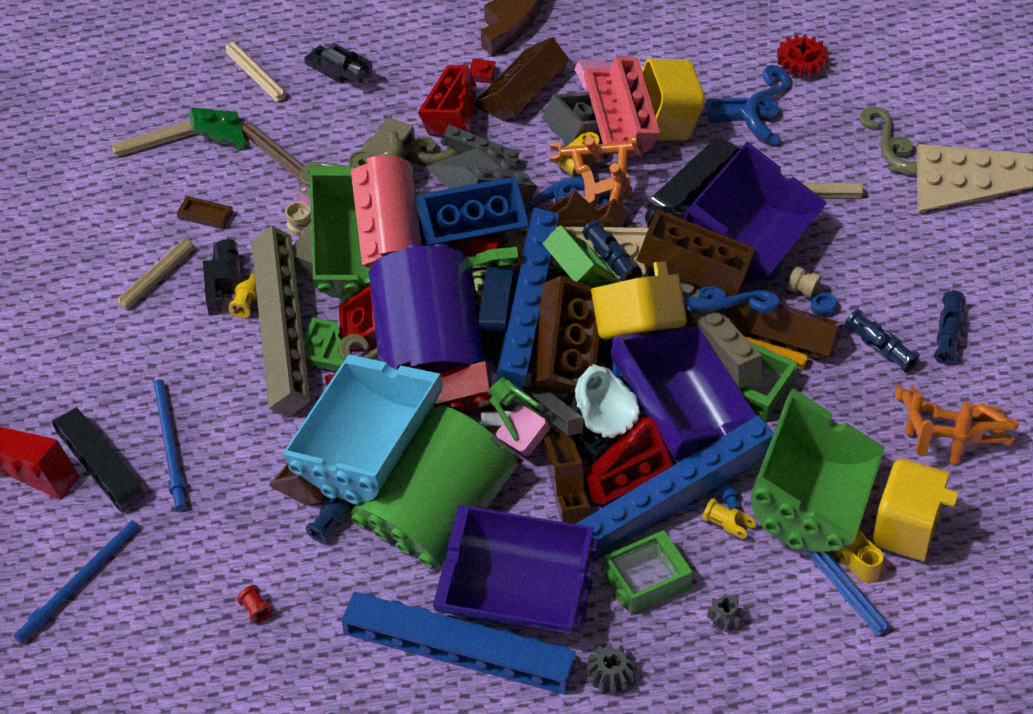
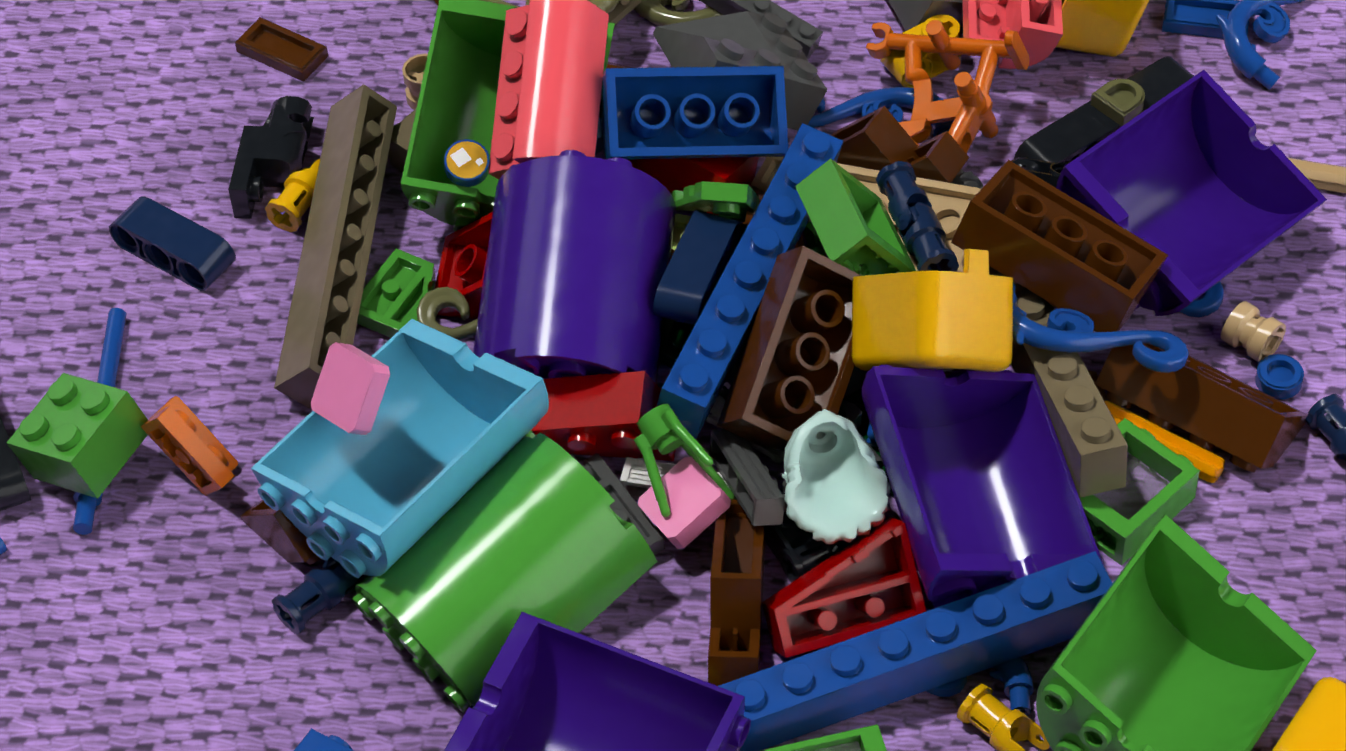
camera: 15 degrees right, 0 degrees up
(155, 274) = (170, 135): tan axle -> none
(167, 454) = (79, 435): none -> bright green brick
(179, 336) = (172, 243): none -> dark blue beam
(232, 450) = (191, 446): none -> orange bracket
(254, 604) = (147, 717): red bush -> none
(330, 398) = (350, 388): none -> bright pink piece
(348, 261) = (466, 163): none -> tile
(699, 165) = (1119, 100): none -> olive tile

